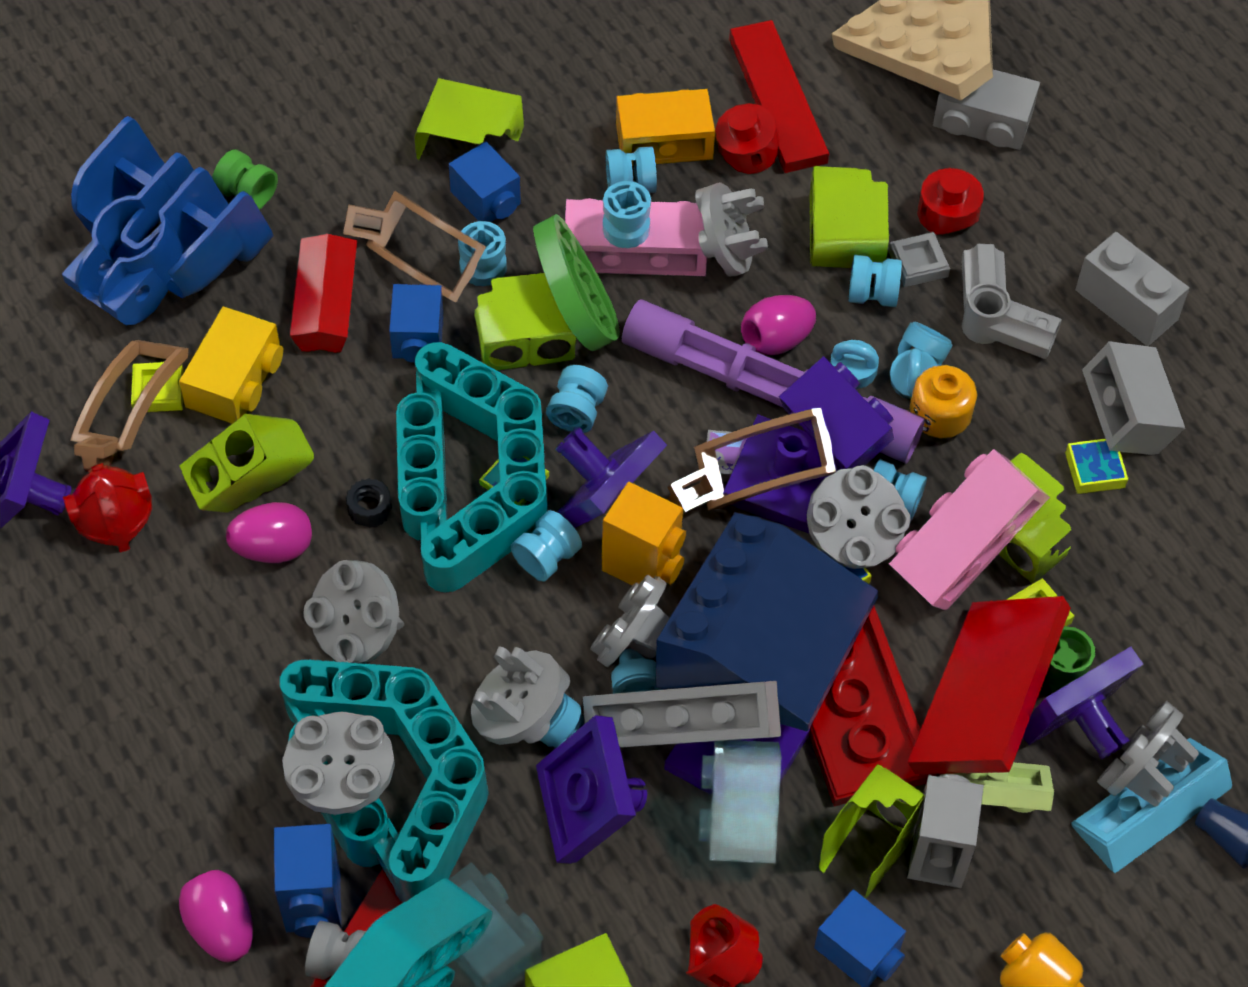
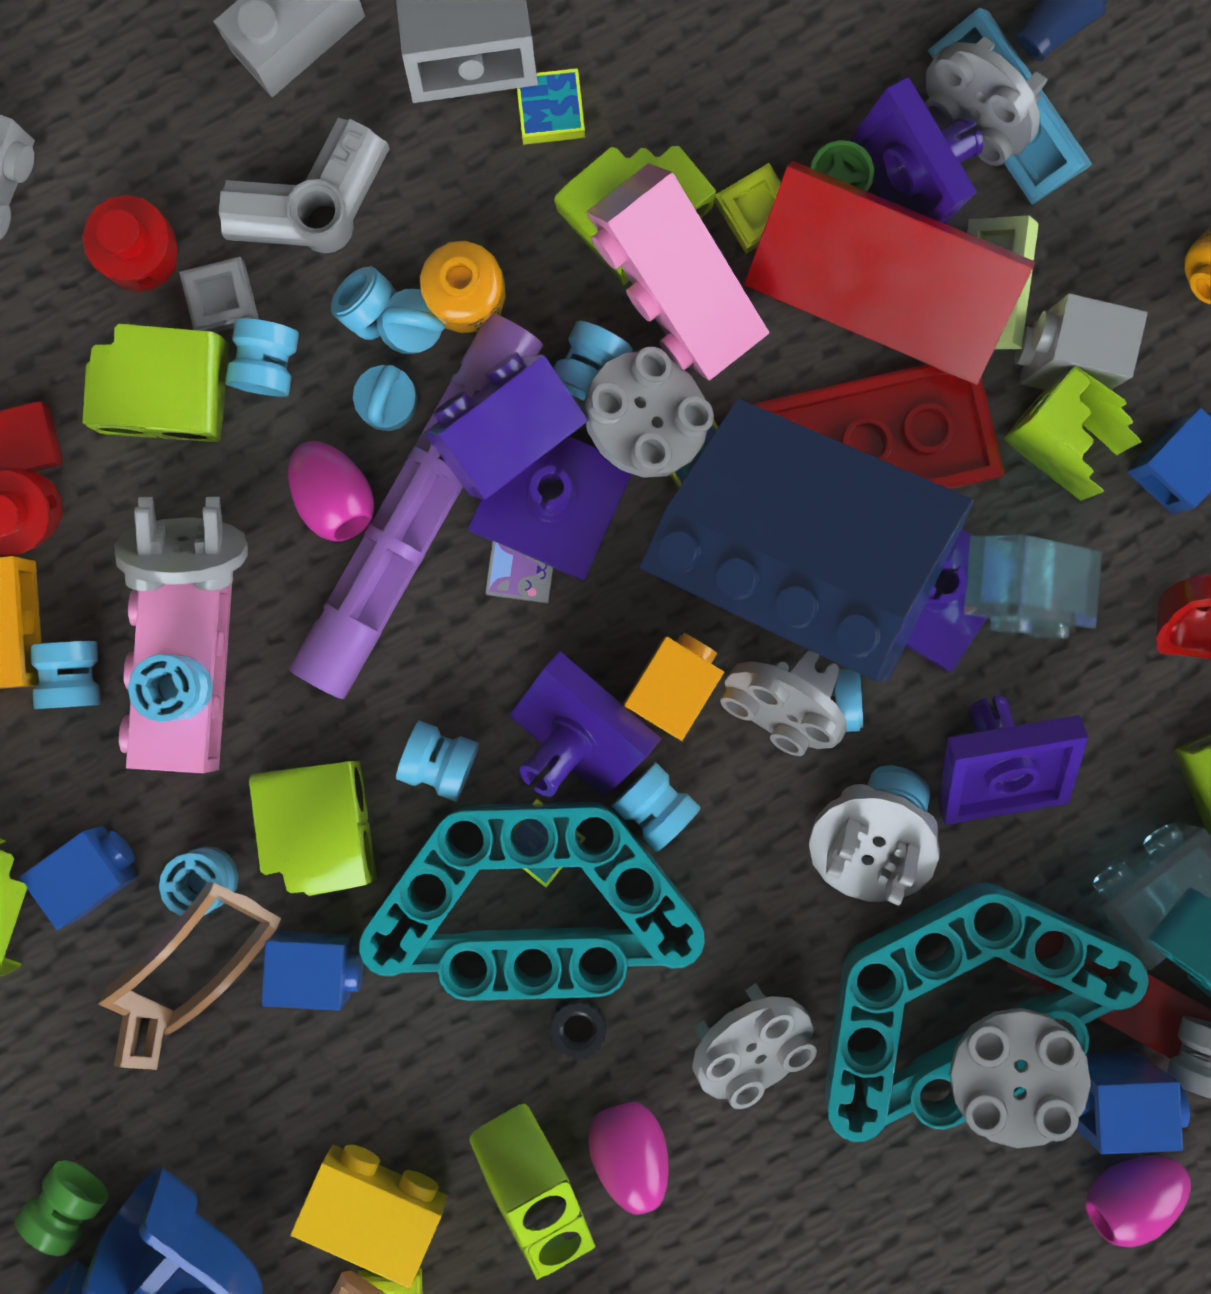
camera: 85 degrees left, 30 degrees up
(323, 293) = (251, 1095): red piece -> none
(575, 284) = (274, 761): bright green piece -> none
(690, 714) = (941, 648): light grey plate -> none
(710, 474) = (561, 594): medium nougat sword -> none

